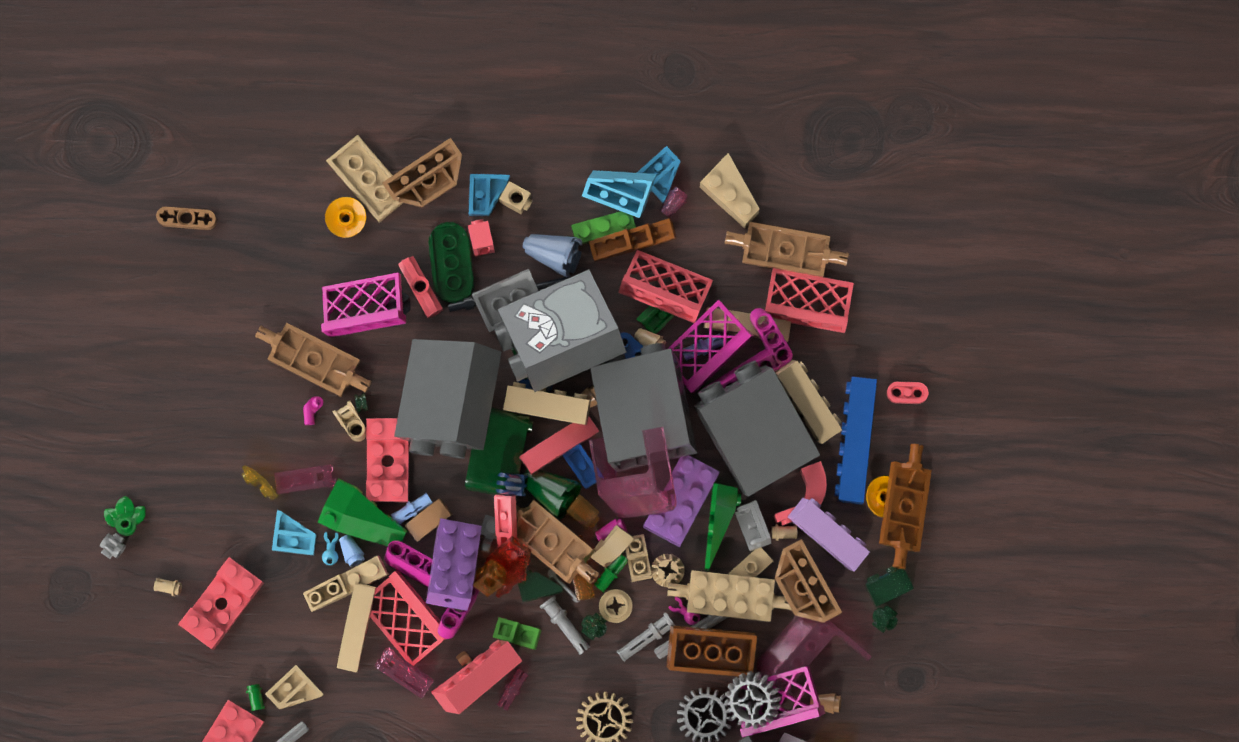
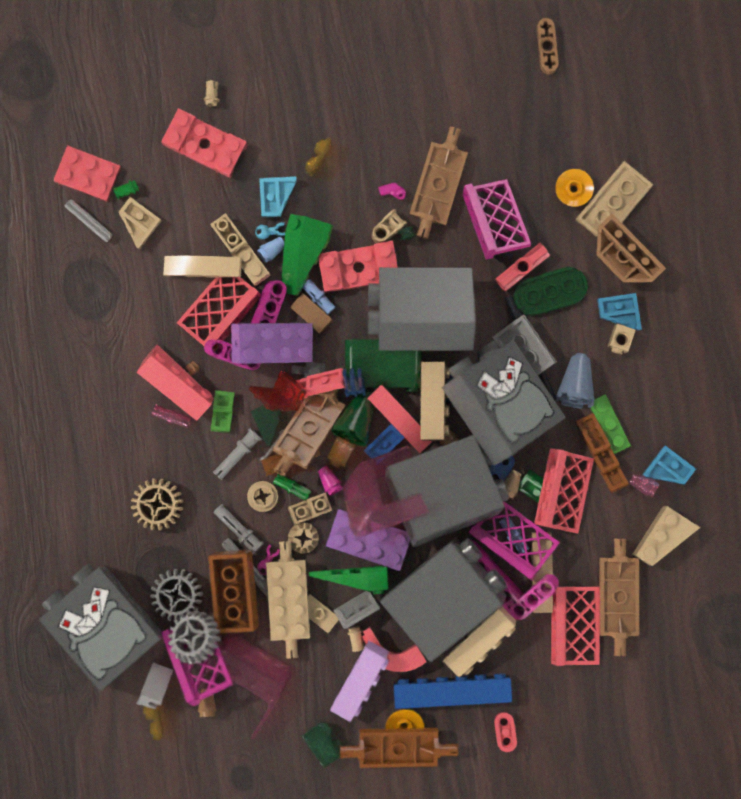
camera: 80 degrees right, 5 degrees up
(112, 545) = (239, 37): light grey gear -> none
(125, 513) = (271, 44): green plate -> none
(303, 479) = (328, 195): clear pink plate -> none
(404, 673) = (169, 316): clear pink plate -> none
(481, 238) = (577, 313): coral brick -> none
(490, 578) = (266, 378): clear orange brick -> none
(594, 626) = (240, 480): clear green gear -> none
(612, 546) = (314, 484): tan slope -> none
(620, 190) = (645, 433): medium azure wedge -> none
(804, 585) = (308, 667): medium nougat wedge -> none
(884, 618) = (292, 745): clear green gear -> none

